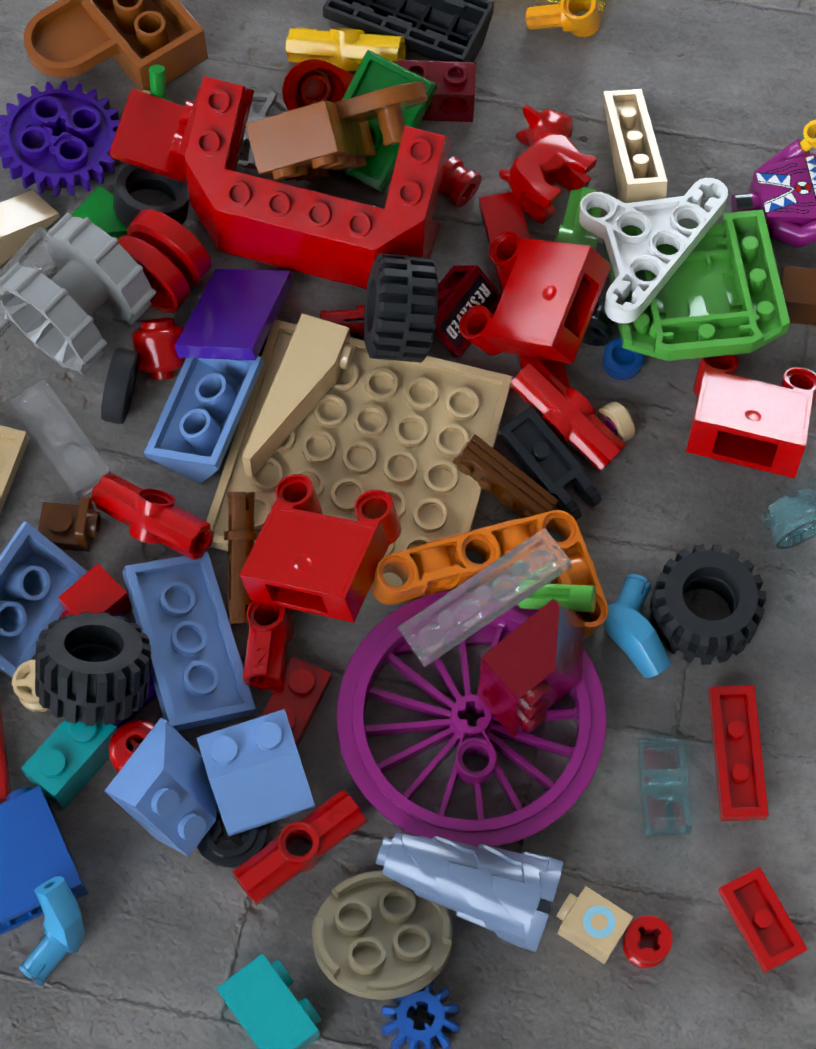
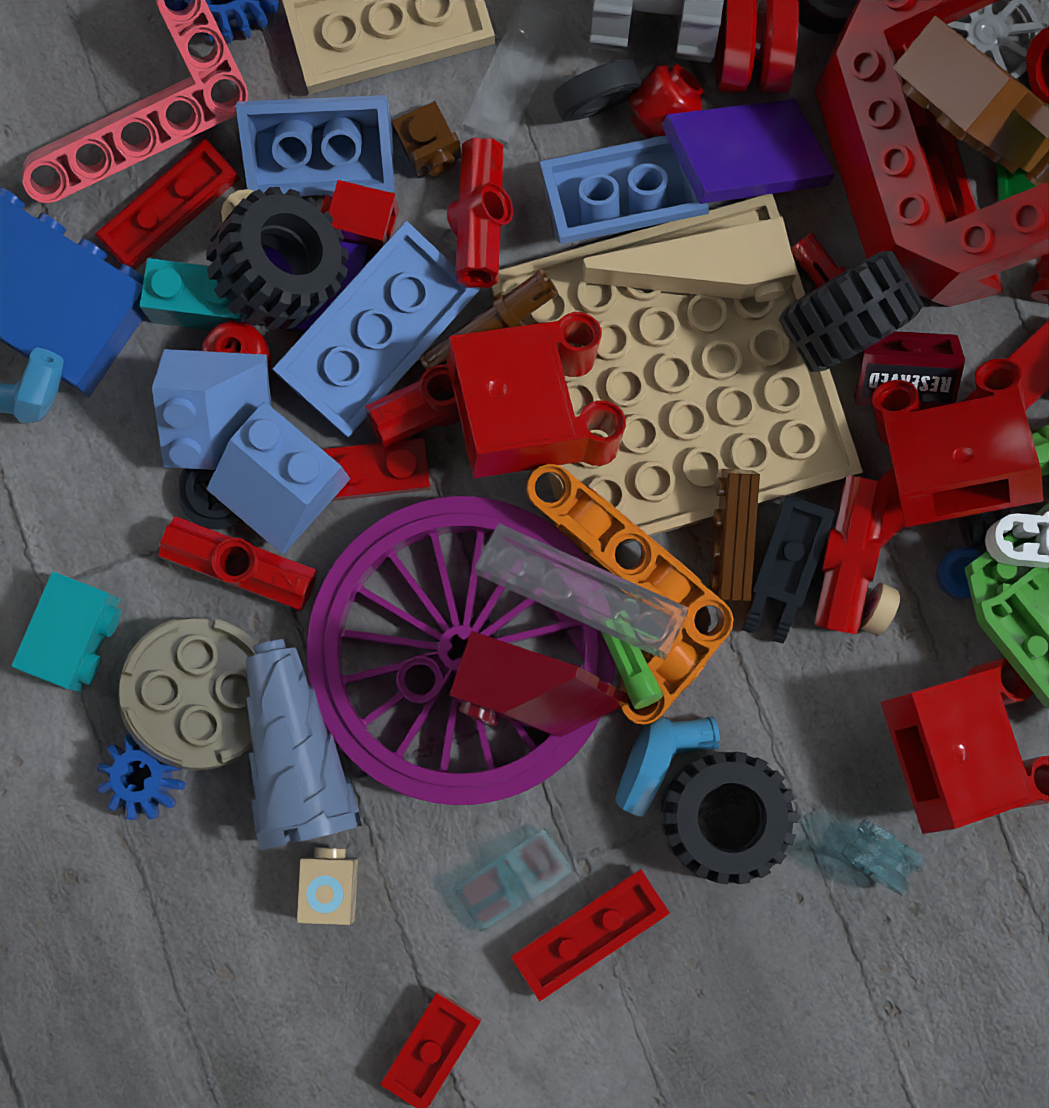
camera: 60 degrees right, 15 degrees up
(640, 948) = (354, 944): red wheel -> none

